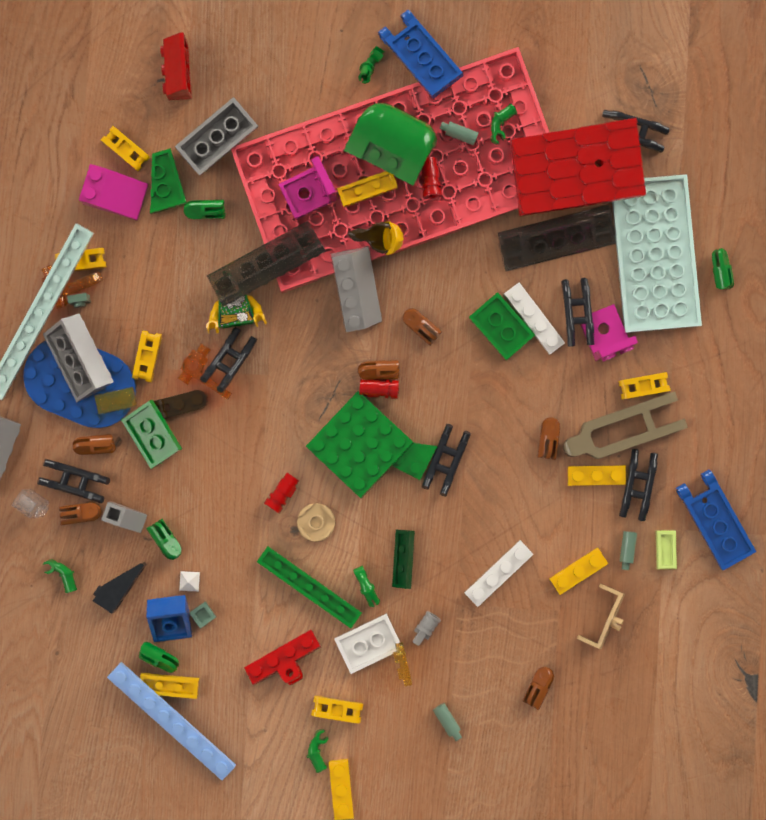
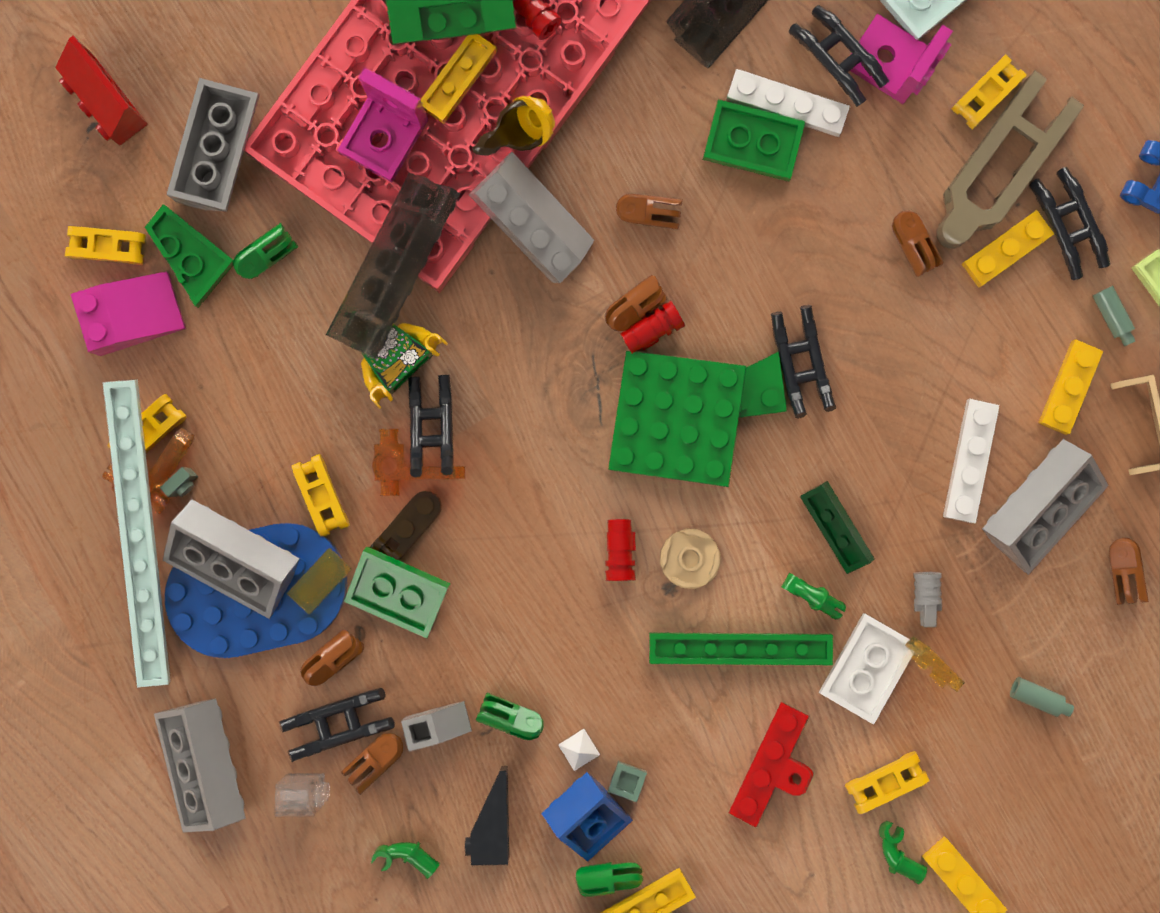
camera: 35 degrees left, 0 degrees up
(520, 623) = (1046, 505): none -> light grey slope

